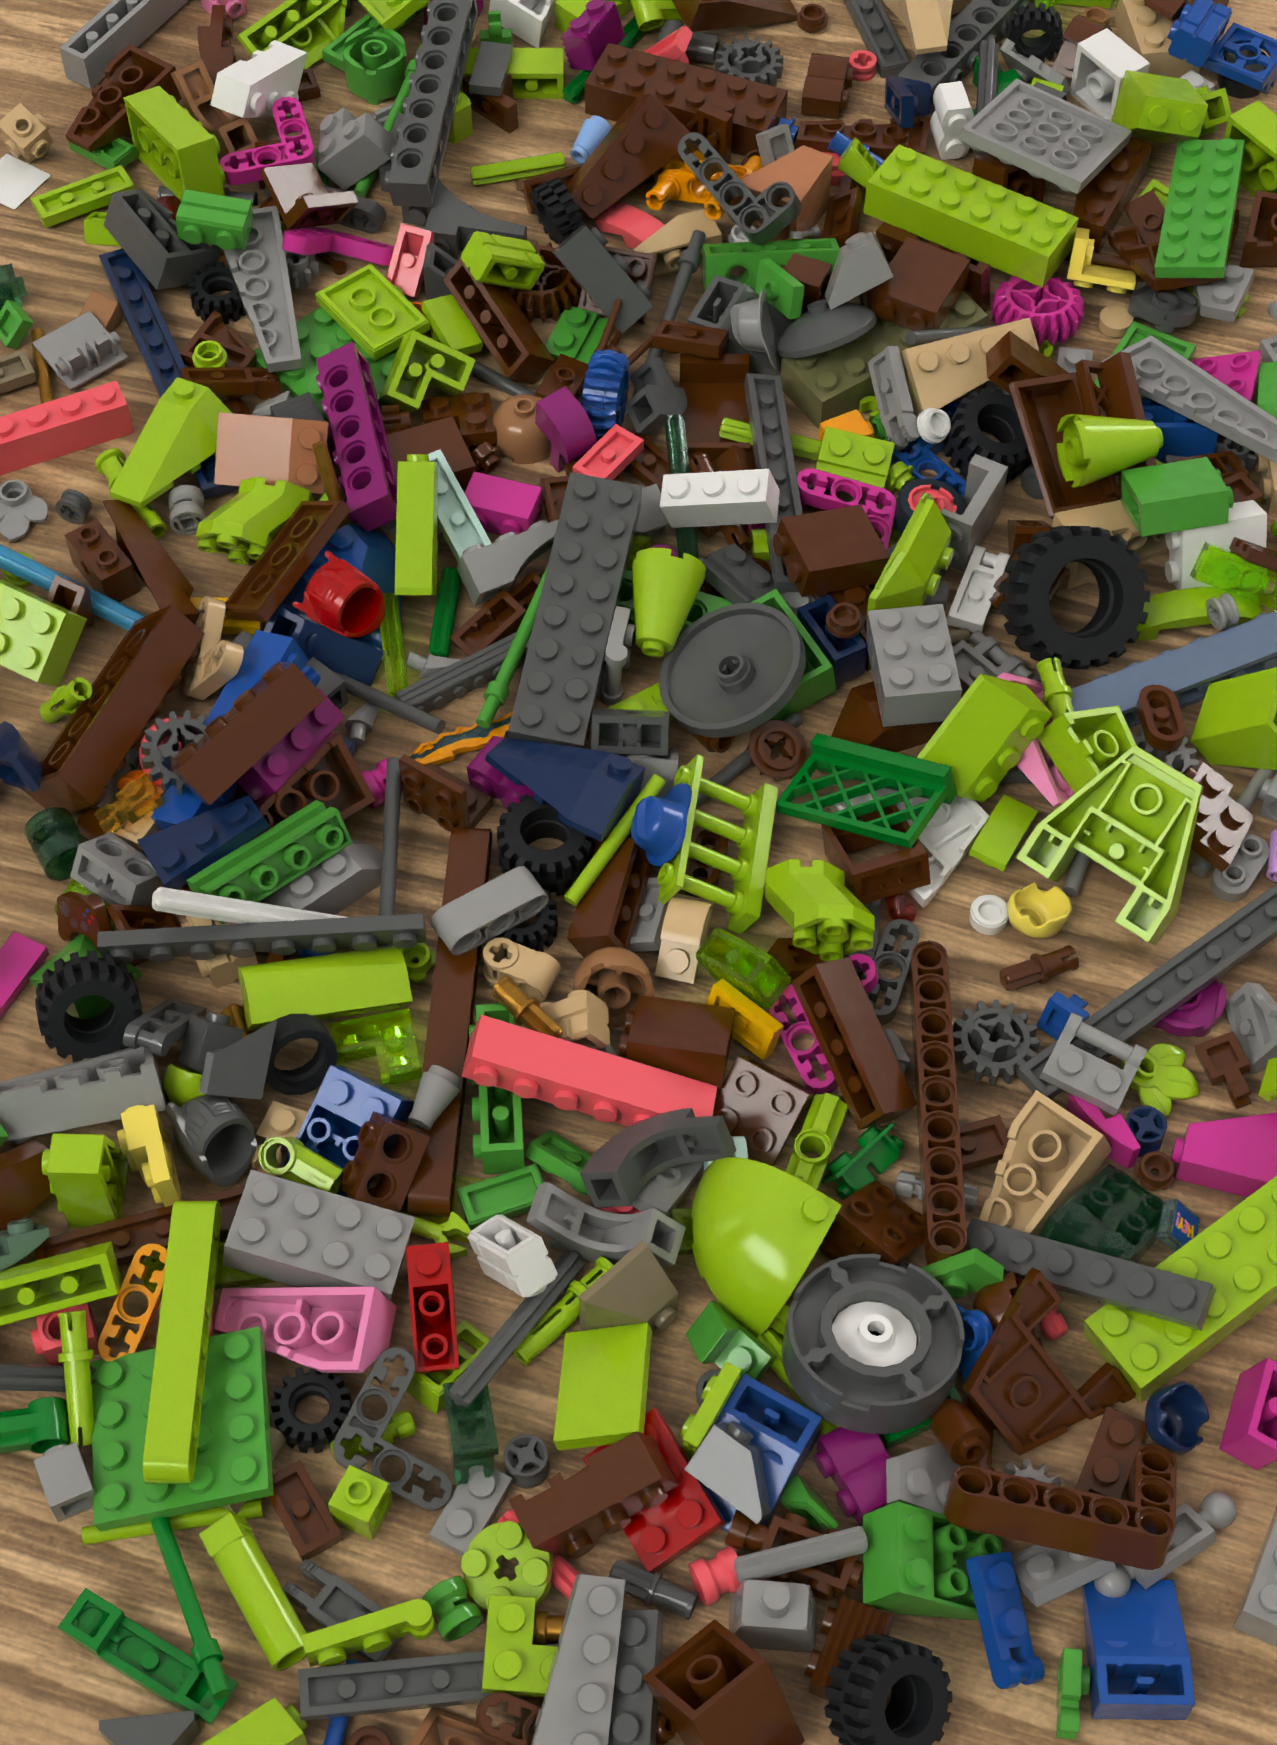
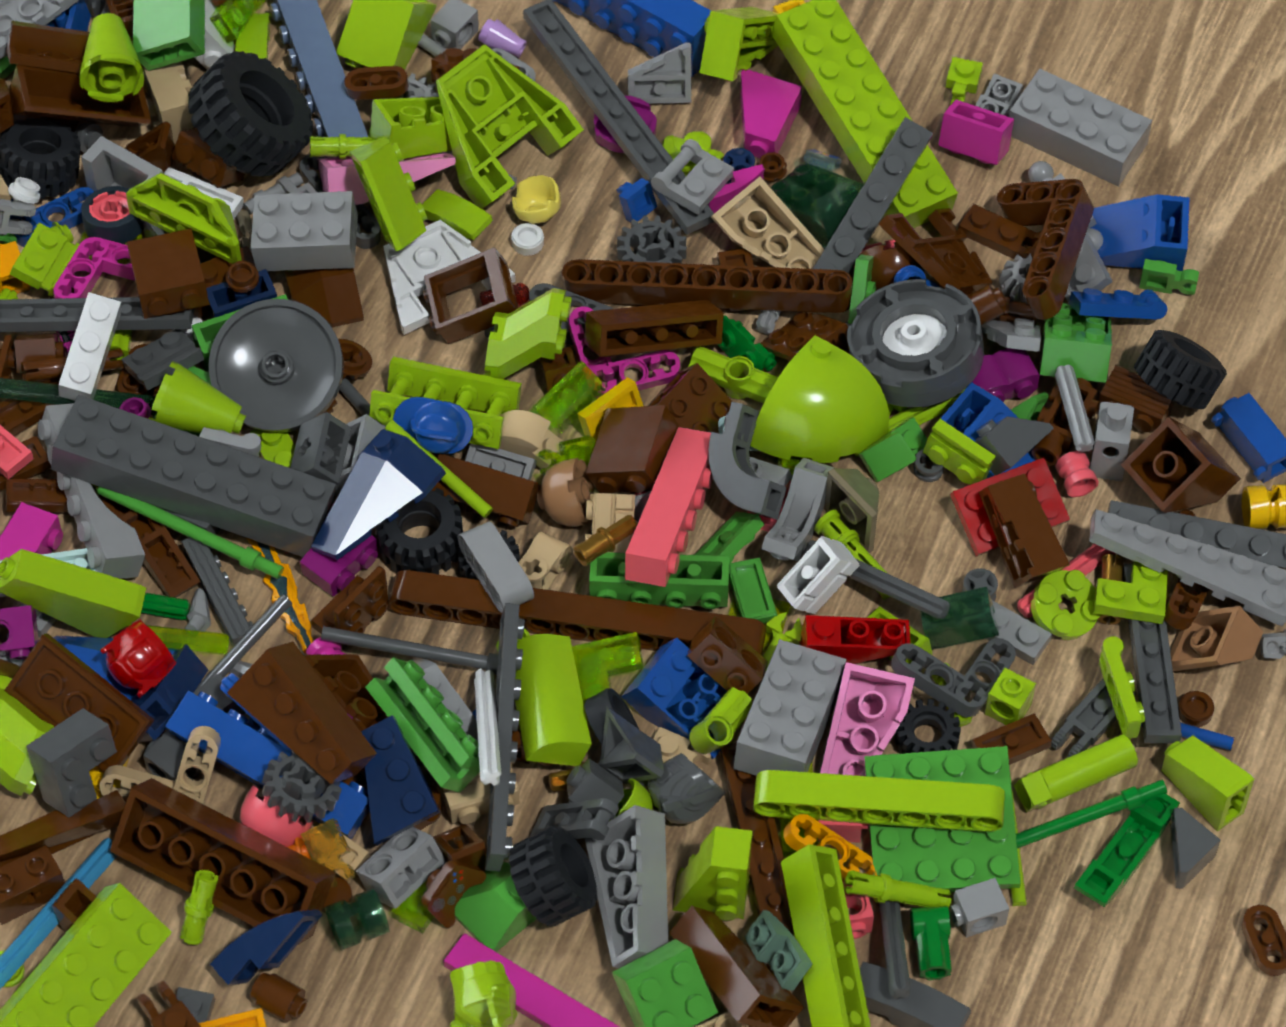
camera: 85 degrees left, 0 degrees up
(150, 1152) = (693, 824): light yellow plate -> none
(211, 554) = (65, 758): none -> dark grey brick
(434, 1094) = (671, 617): light grey cone -> none
(453, 1609) = (1089, 644): bright green wheel -> none
(602, 1386) = (928, 527): lime tile -> none
(655, 1589) = (1081, 517): dark grey axle -> none
(667, 979) = (569, 449): none -> clear neon green plate
(877, 770) = (390, 283): green fence -> none
(1038, 968) = (586, 211): reddish brown axle -> none
(1175, 1417) = (971, 188): dark blue hair -> none
(1222, 611) = (271, 27): light grey bush -> none
(1226, 1062) = (686, 109): reddish brown plate -> none

